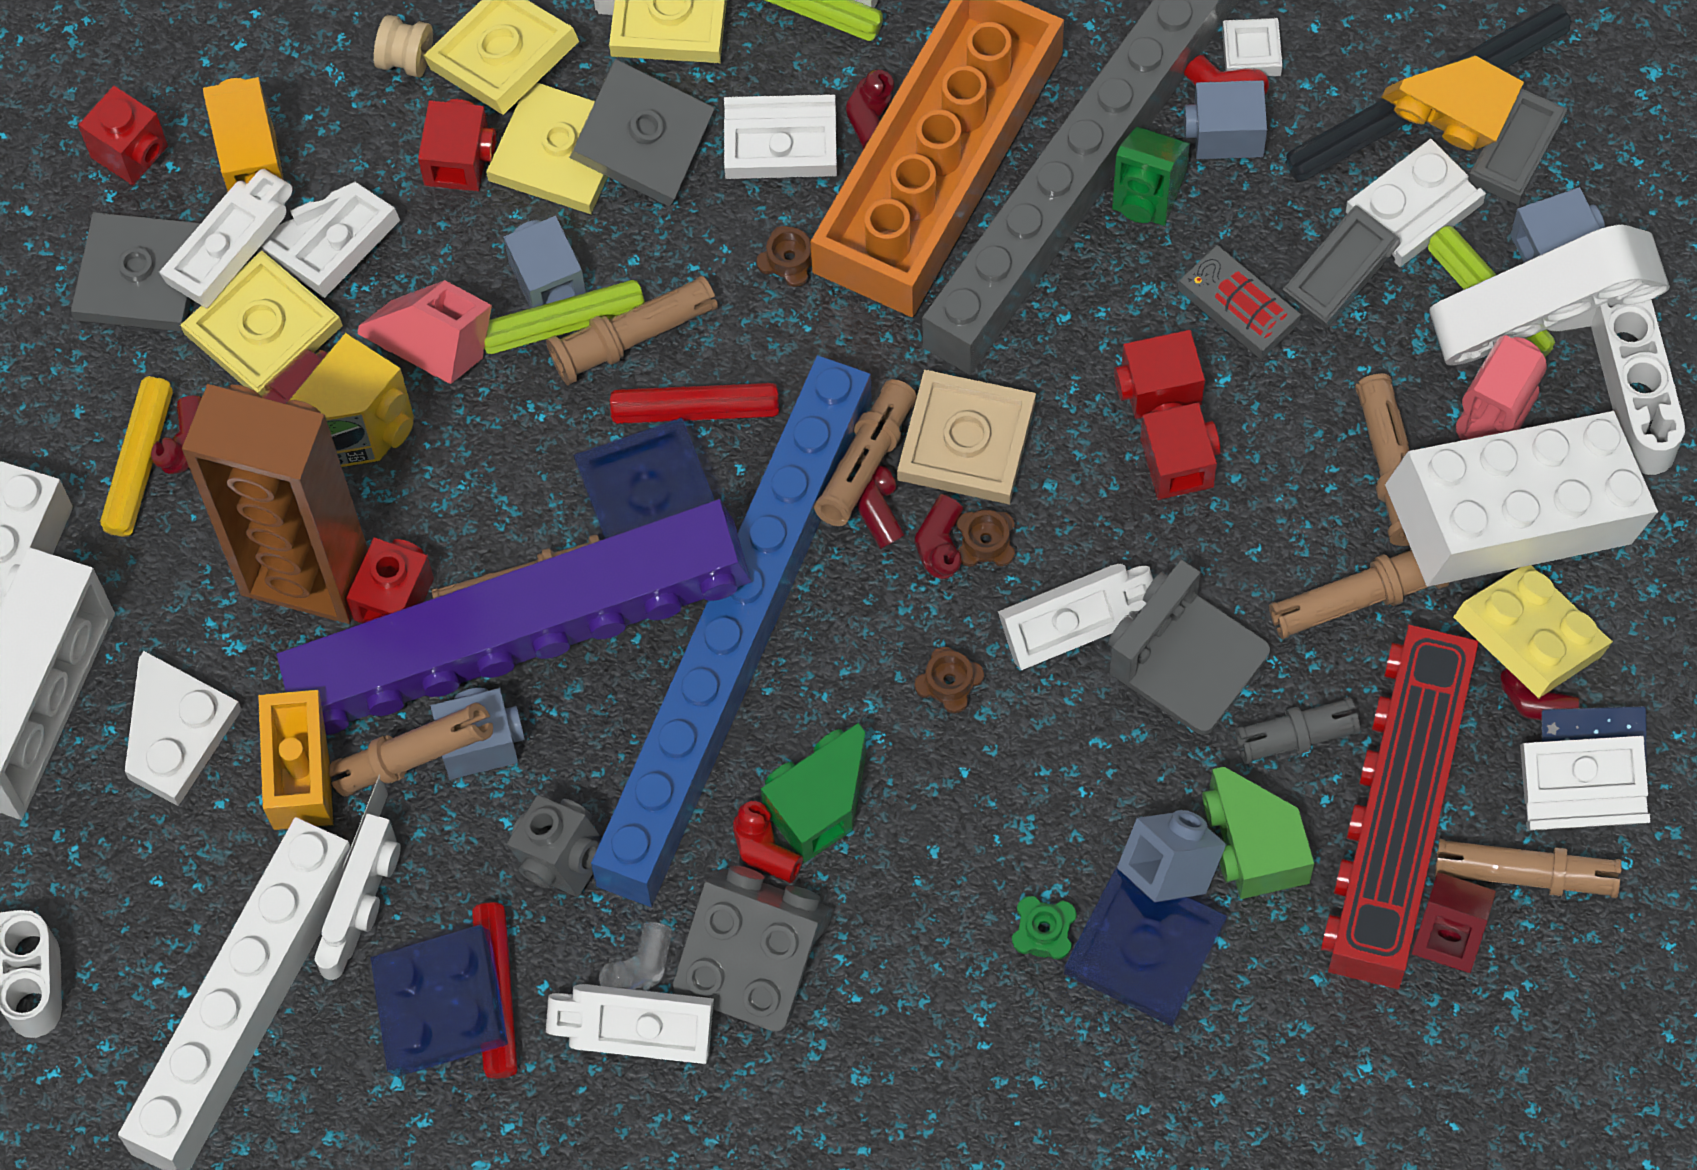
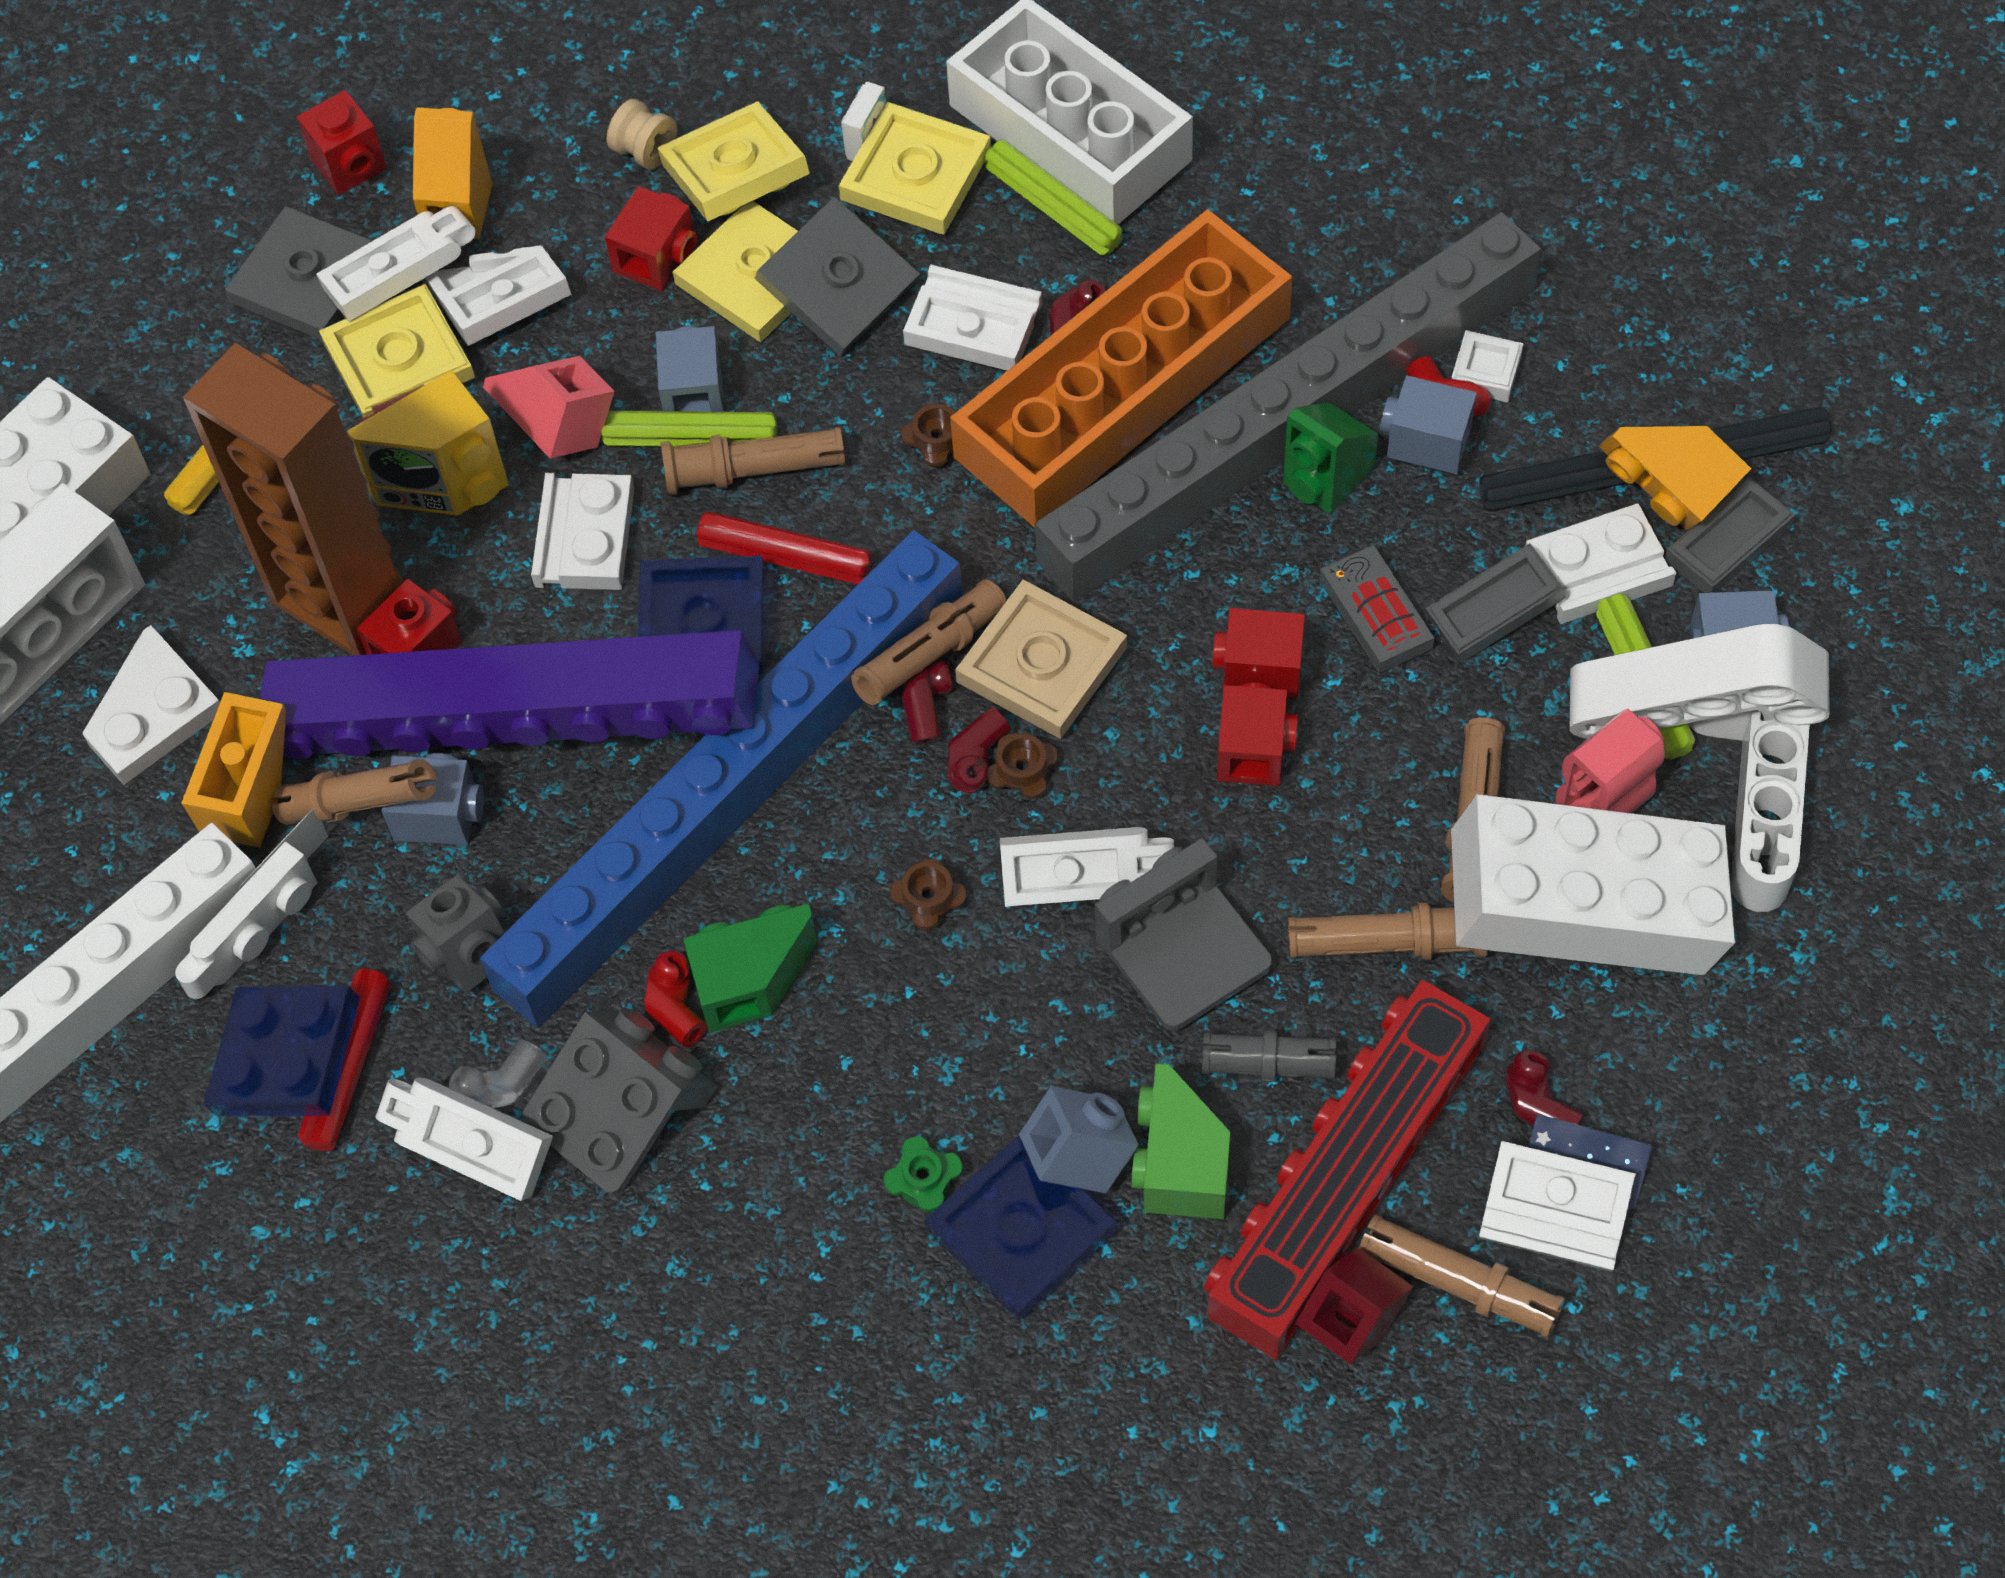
camera: 20 degrees right, 5 degrees down
(504, 441) = (583, 531): none -> white plate
(1533, 629) = (1557, 1027): light yellow plate -> none

